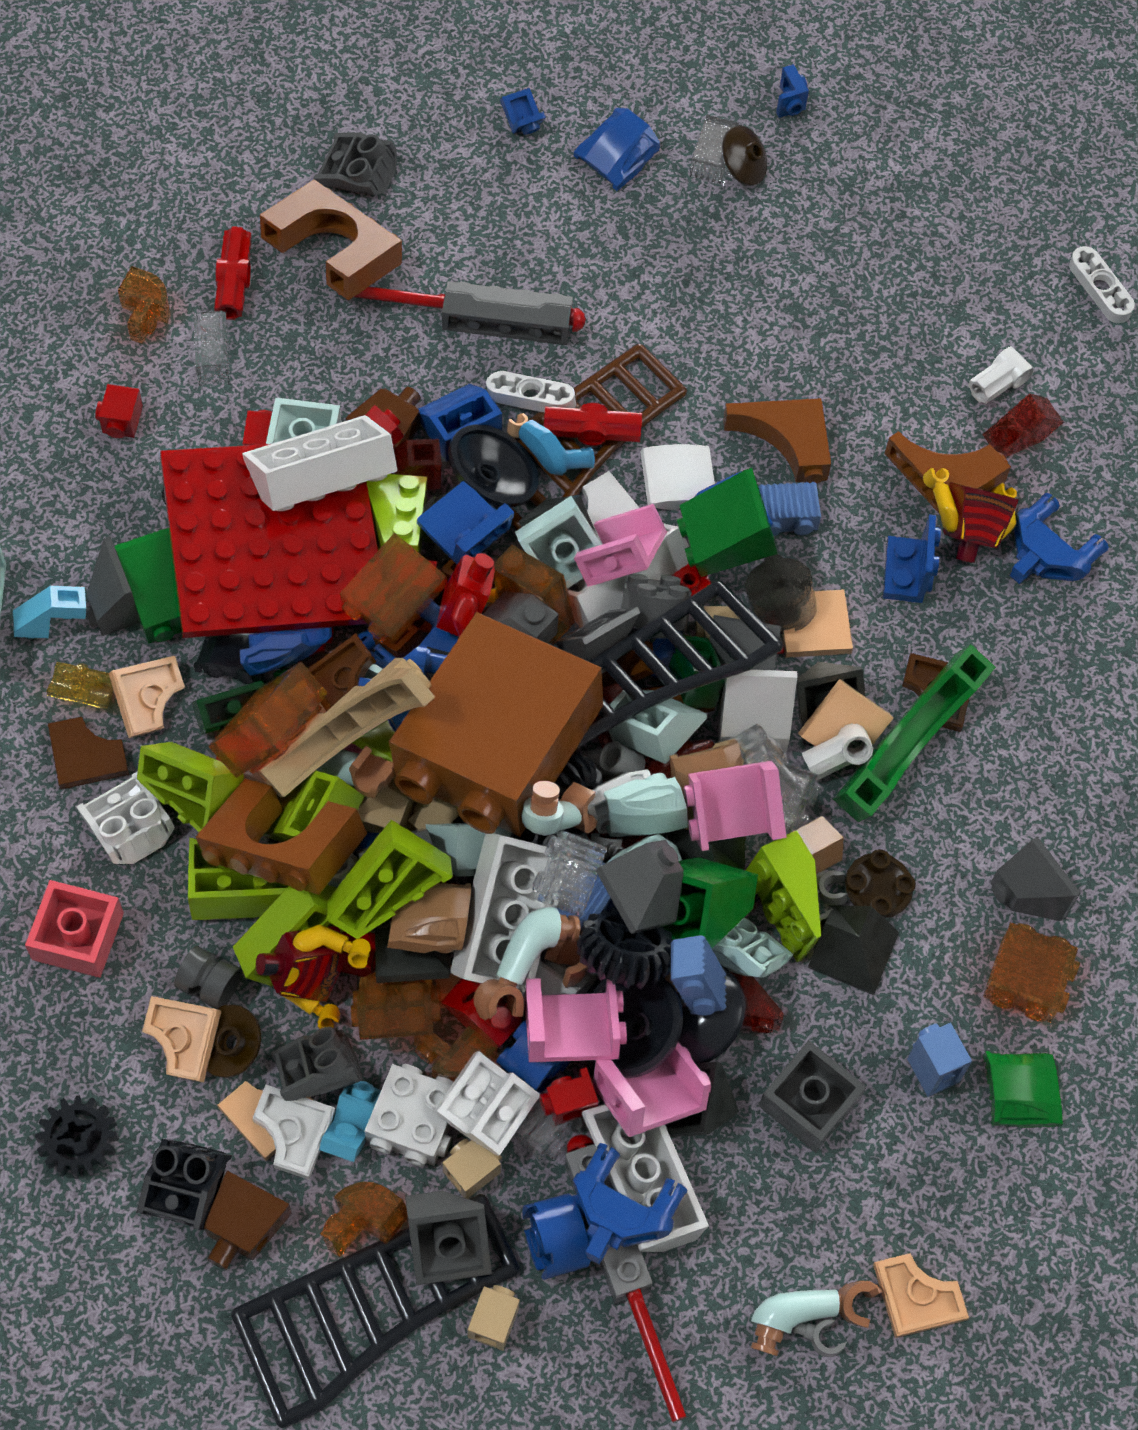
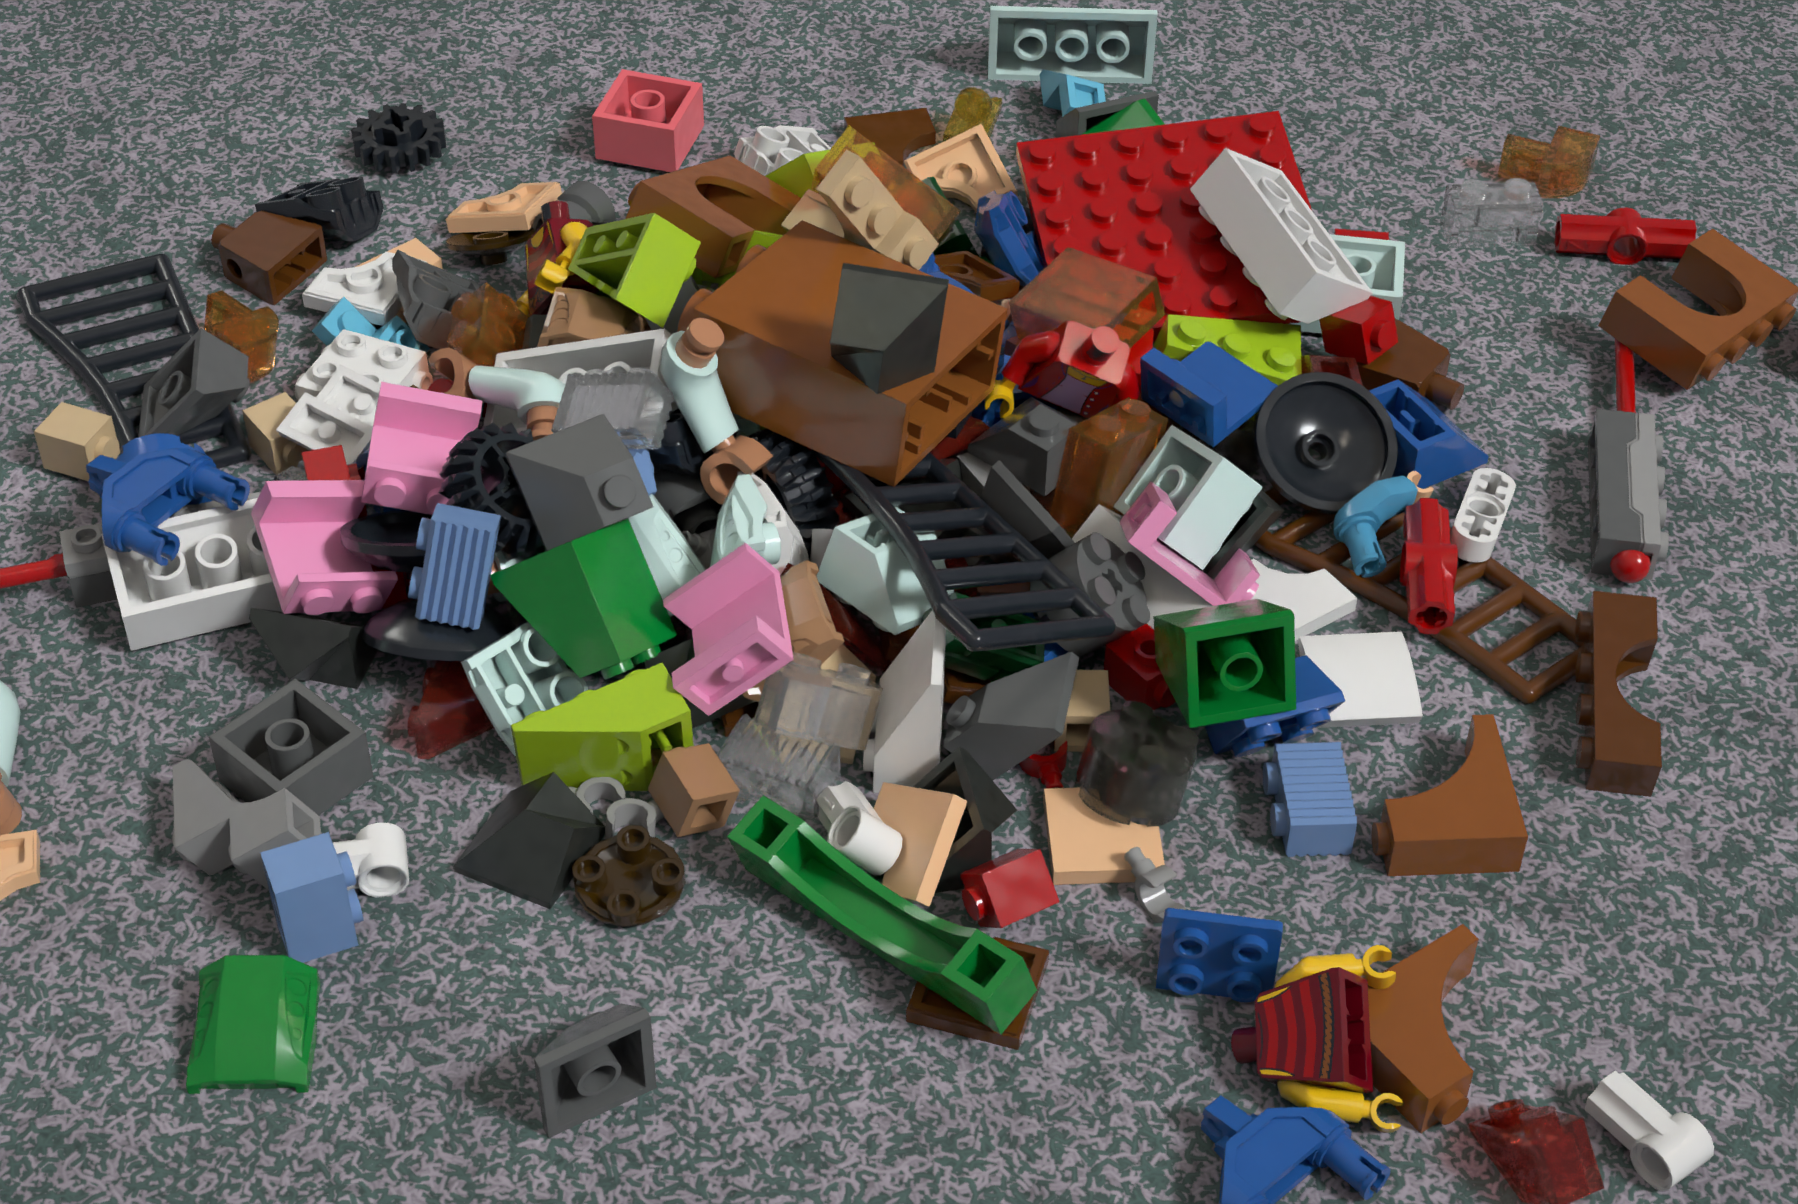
camera: 95 degrees right, 20 degrees down
(119, 411) = (1376, 146): red brick -> none
(568, 668) = (887, 325): none -> pearl dark grey slope
(659, 336) = (1619, 743): none -> reddish brown arch
(860, 594) = (1150, 884): none -> light grey piece
(873, 1133) = (221, 831): none -> light grey arch
(880, 668) = (1008, 888): none -> red brick
(886, 1040) = (378, 859): none -> white piece
(1032, 973) = (441, 1047): clear orange brick -> none

